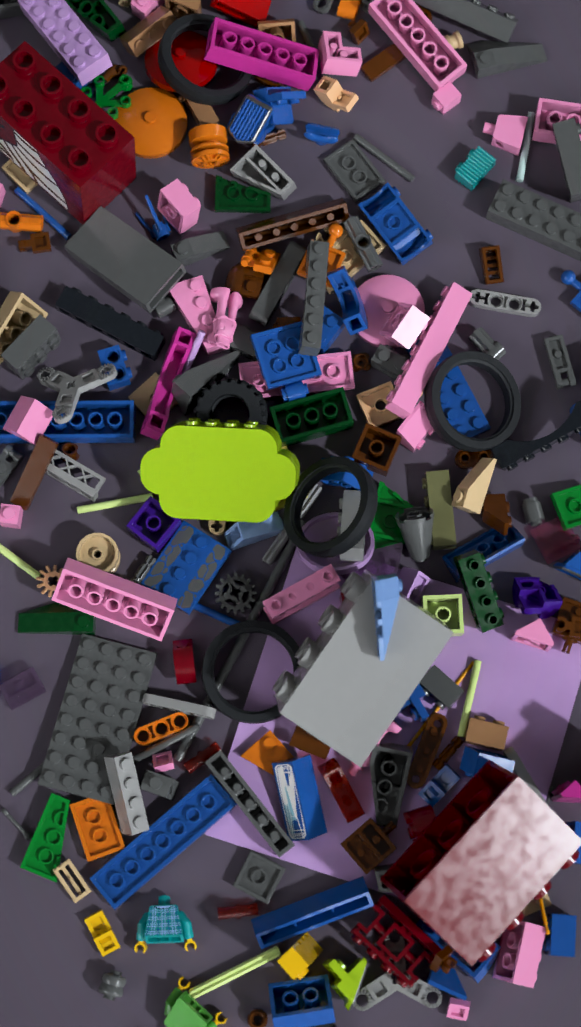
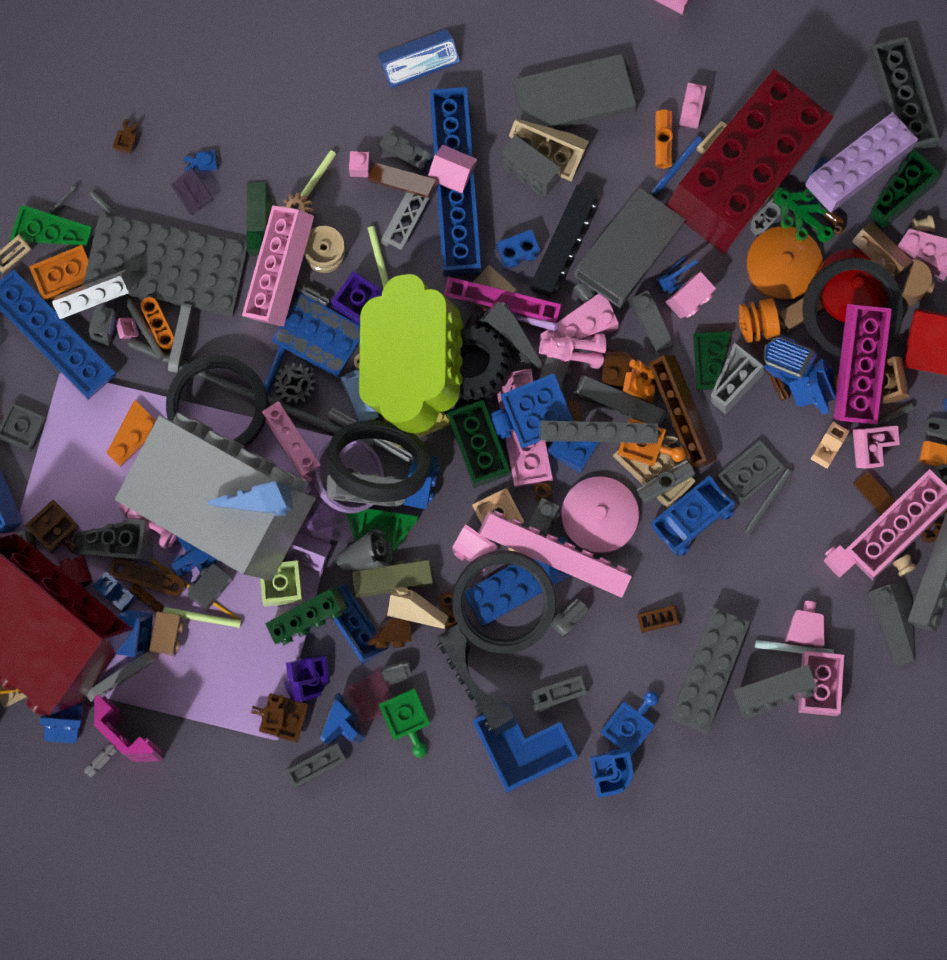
camera: 85 degrees right, 0 degrees up
(38, 243) = (642, 164): reddish brown plate -> none
(69, 447) = (433, 214): reddish brown plate -> none
(71, 387) = (480, 204): light grey piece -> none
(184, 661) = (225, 338): dark red brick -> none
(201, 757) = (132, 365): clear red pin -> none
(250, 804) = (87, 410): dark grey brick -> none
(299, 798) = (94, 458): blue slope -> none
(321, 134) = (786, 434): blue piece -> none
(341, 790) = (101, 498): clear red slope -> none
(350, 300) = (600, 476): blue arch -> none
(358, 31) = (906, 465): reddish brown tile -> none
(376, 449) = (449, 509): reddish brown brick -> none
(405, 325) = (578, 527): slope -> none
(474, 168) = (763, 595): teal brick -> none
(504, 306) = (618, 634): light grey beam -> none
(534, 635) = (265, 675): bright pink slope -> none

